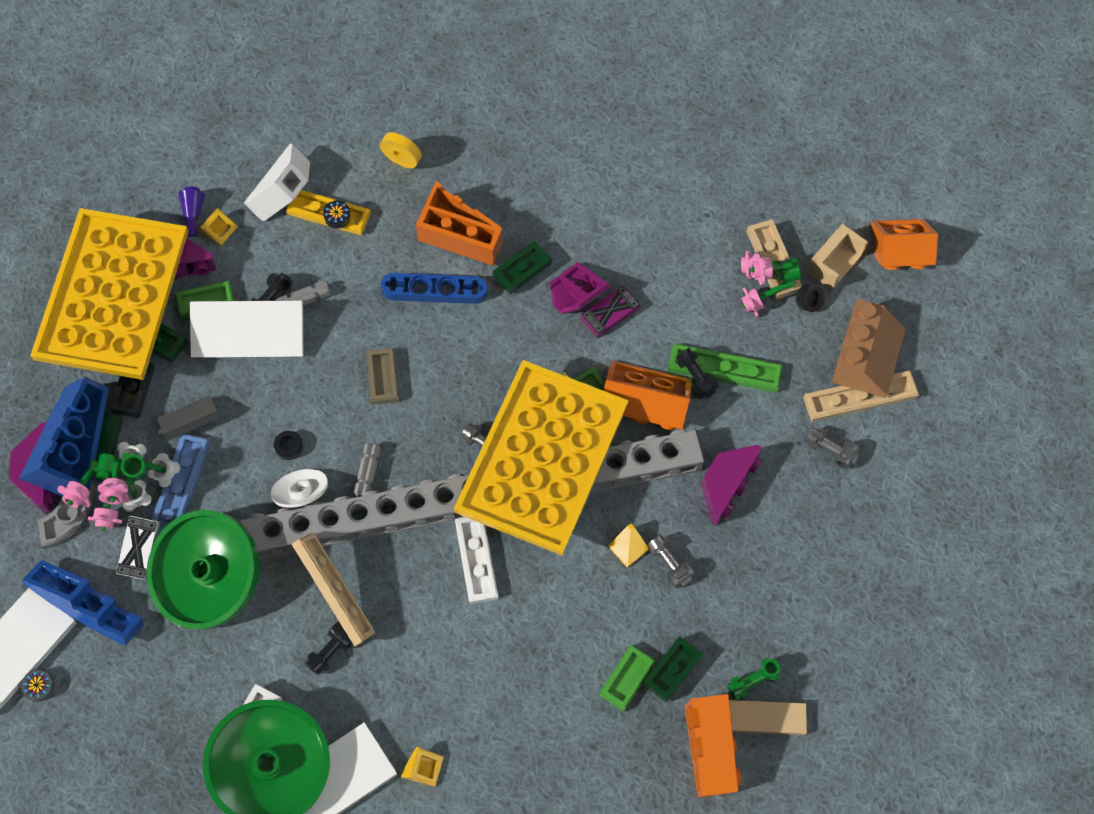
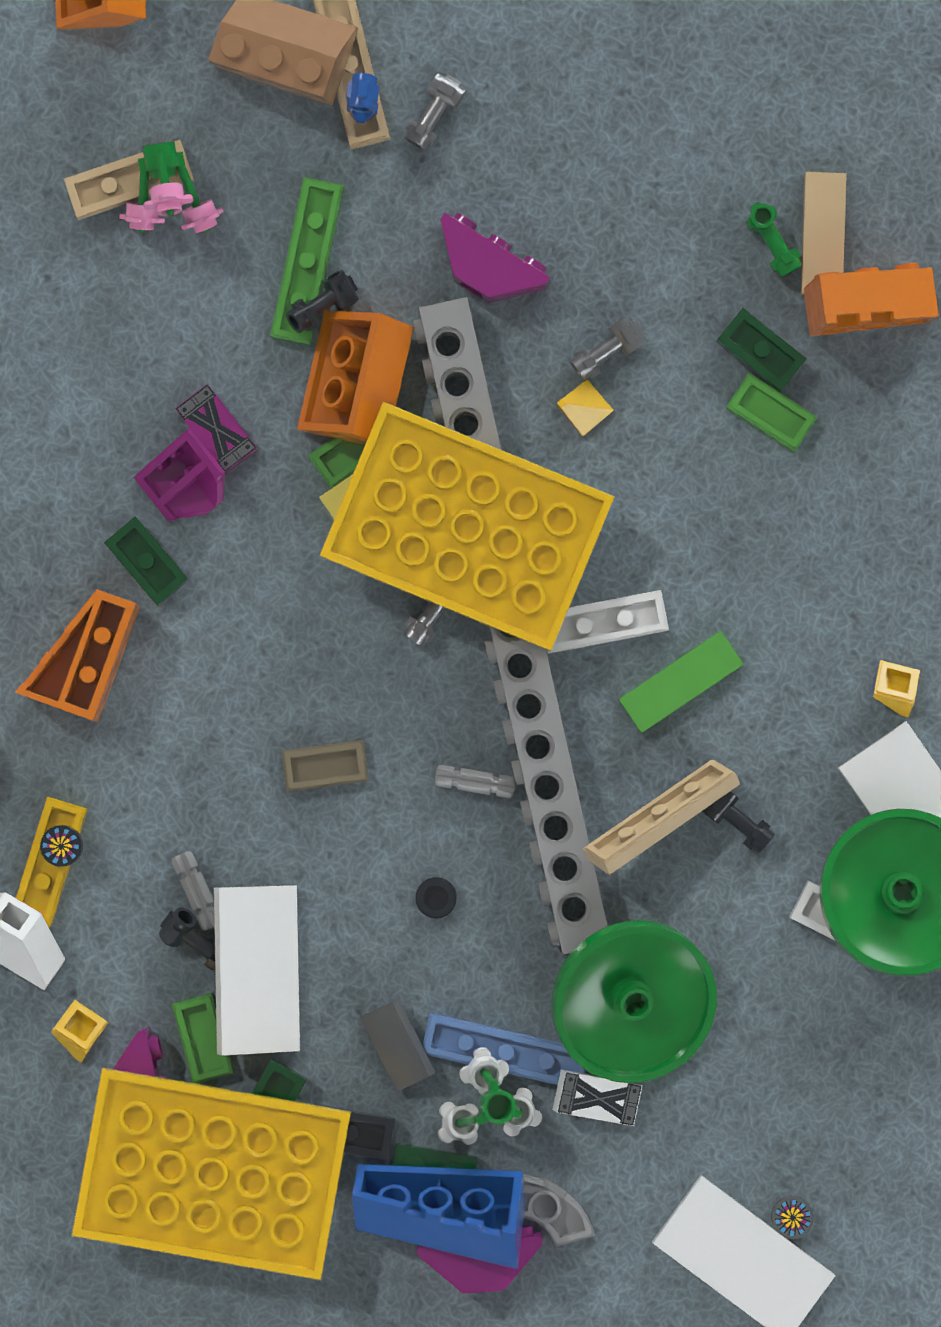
camera: 85 degrees left, 20 degrees up
(77, 599) = (677, 1167): blue slope -> none
(112, 490) = (534, 1136): bright pink plant -> none
(191, 203) = (44, 1072): dark purple cone -> none
(299, 488) = (495, 878): white dish -> none
(432, 611) = (680, 681): none -> bright green tile
(434, 285) = (185, 694): blue beam -> none
(810, 297) = (195, 129): black tile -> none
(837, 257) = (126, 85): tan panel -> none
(838, 389) = (362, 97): none -> blue bar

